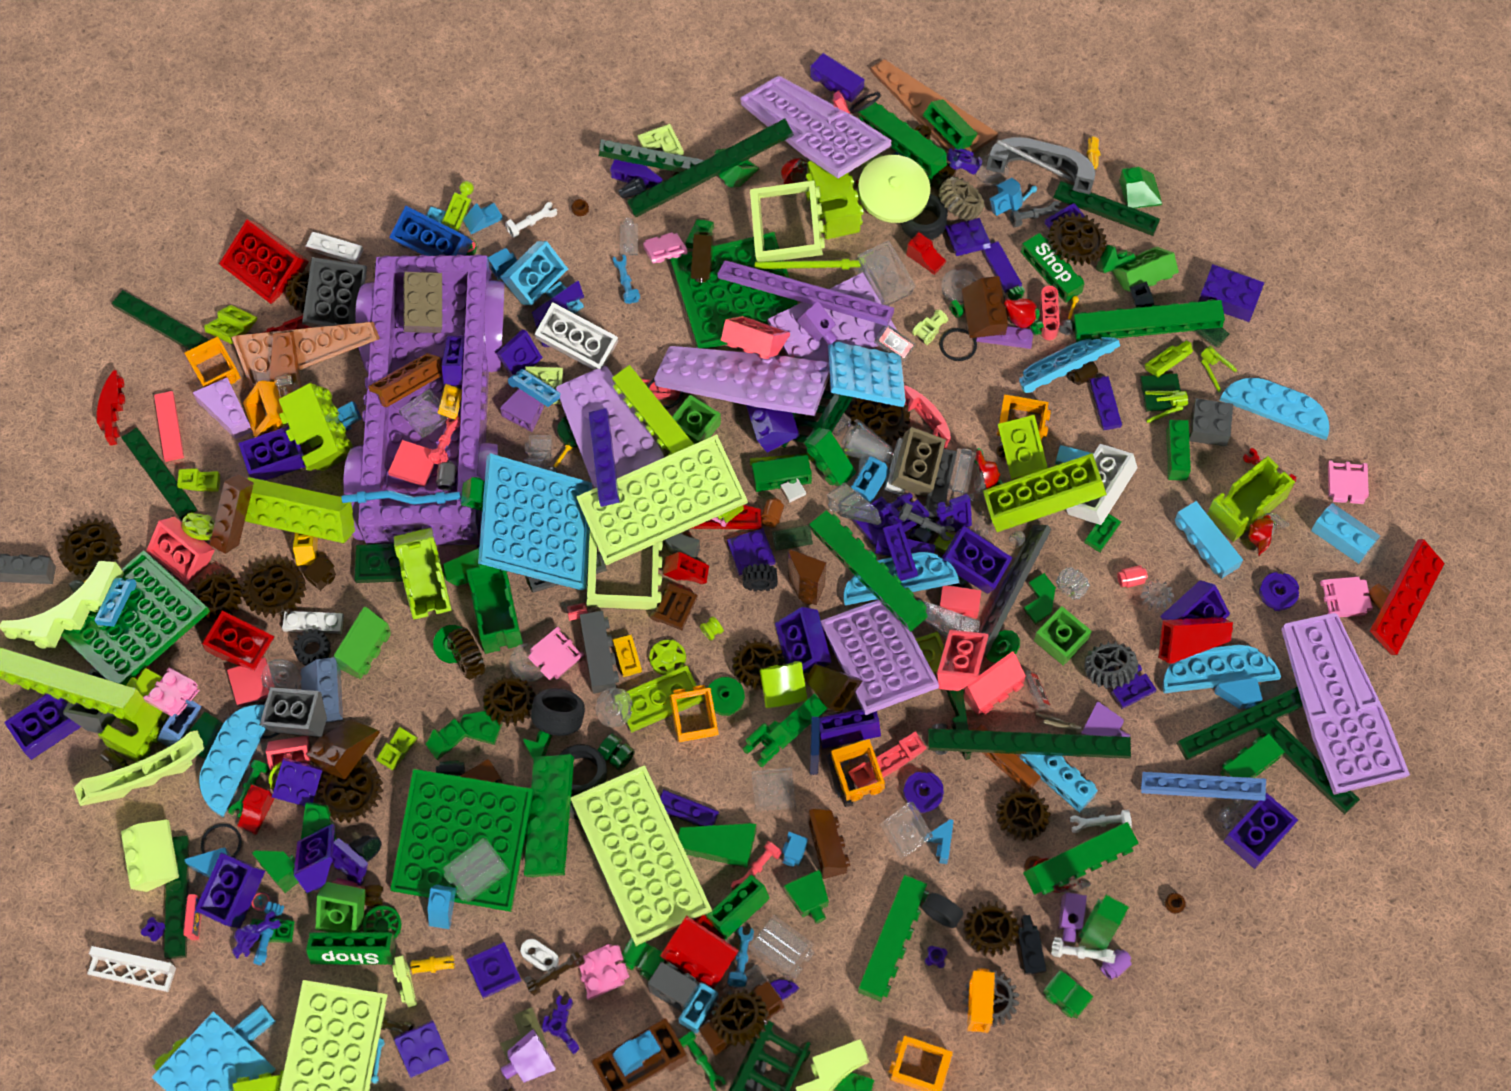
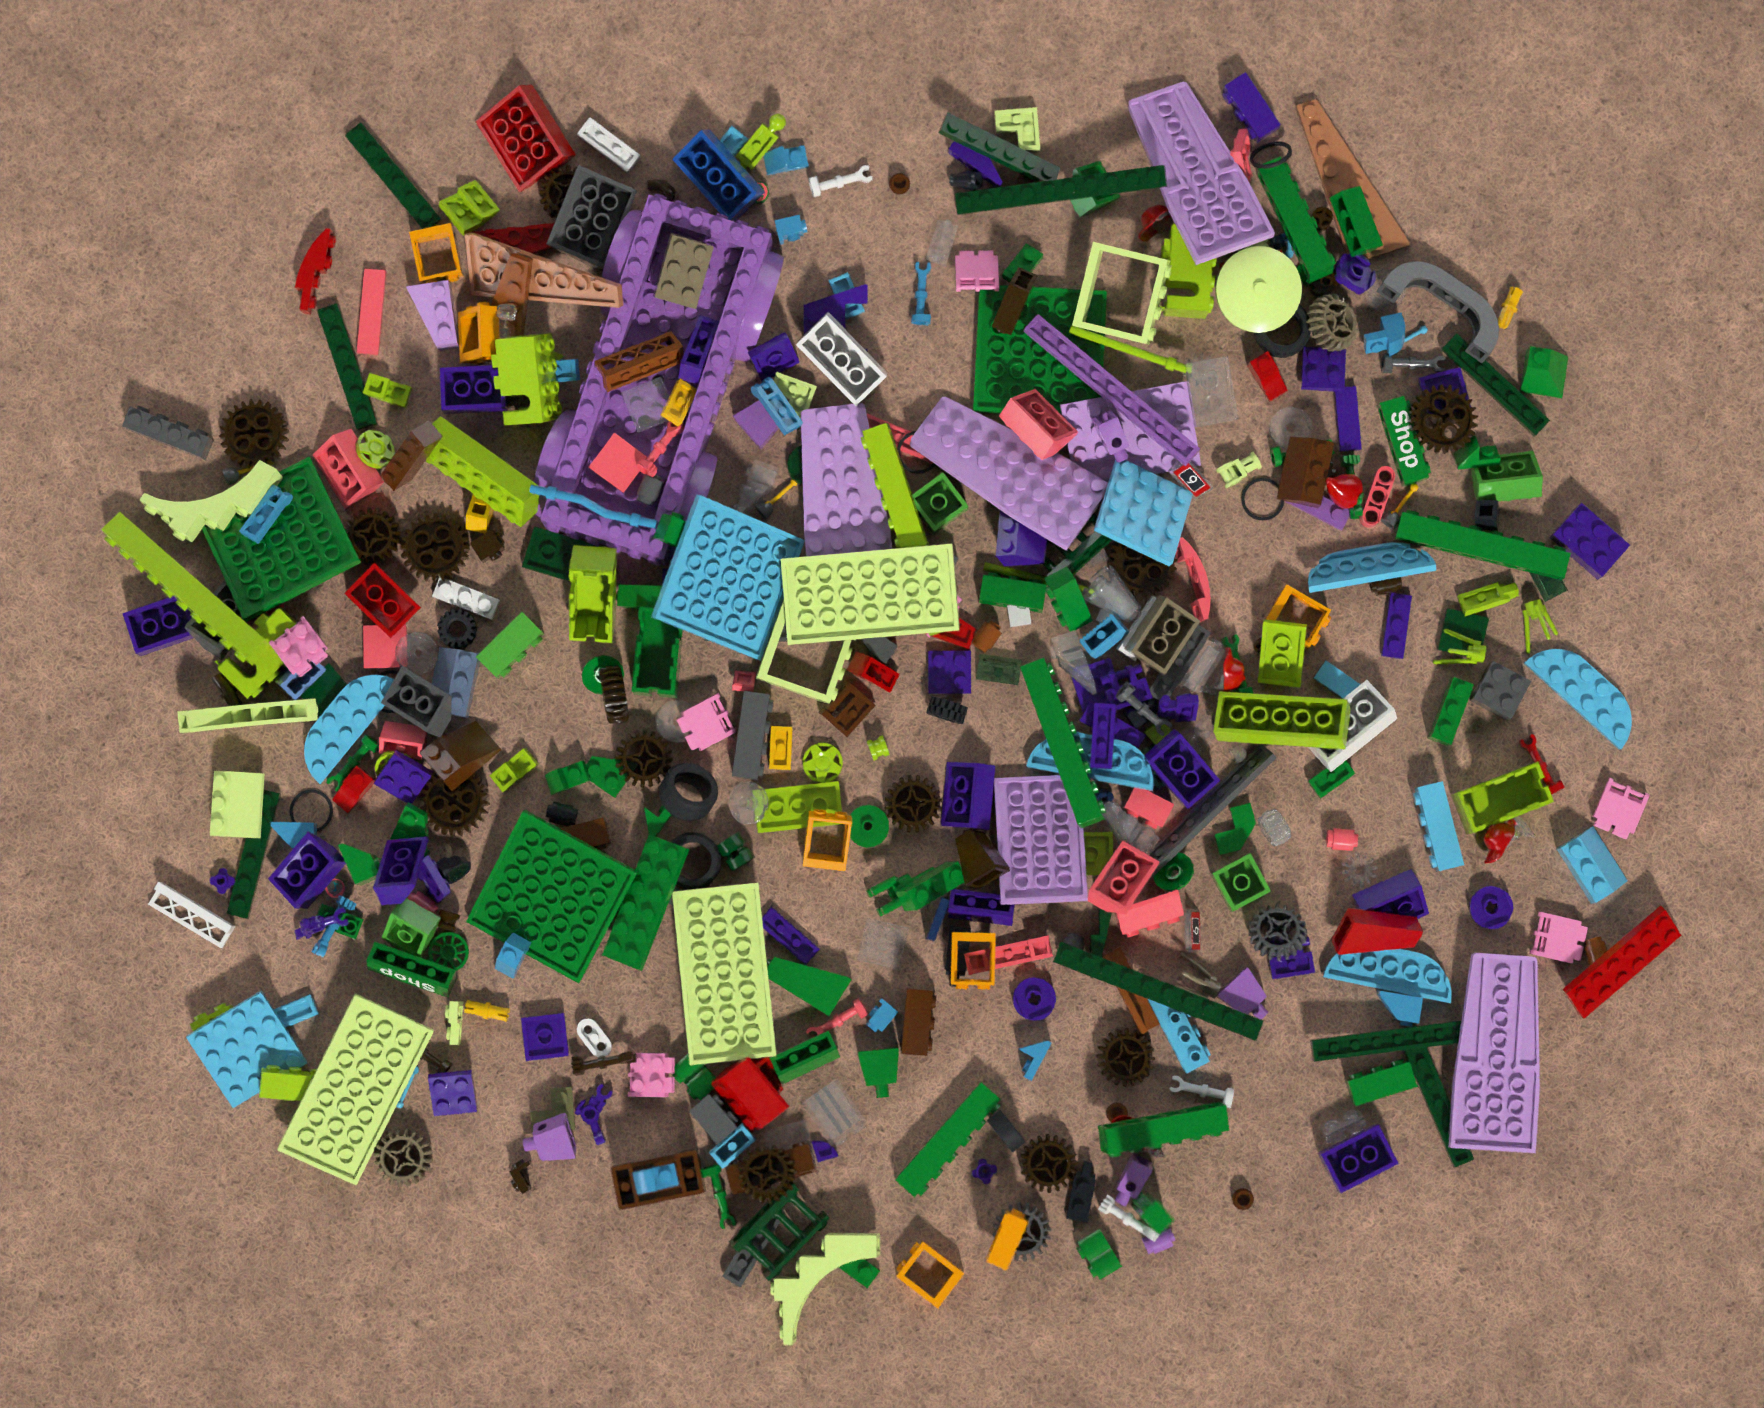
camera: 20 degrees right, 20 degrees up
(192, 918) = (263, 884): coral tile -> none
(475, 870) = (555, 935): clear brick -> none
(534, 273) = (820, 259): medium azure brick -> none
(604, 457) = (824, 522): dark purple plate -> none
(737, 978) = (781, 1129): dark azure piece -> none
(783, 684) = (930, 838): lime slope -> none
(806, 576) = (994, 731): reddish brown slope -> none
(906, 830) = (1001, 1035): clear plate -> none
(1019, 152) = (1435, 300): light grey axle -> none
(1203, 786) = (1319, 1094): medium blue plate -> none

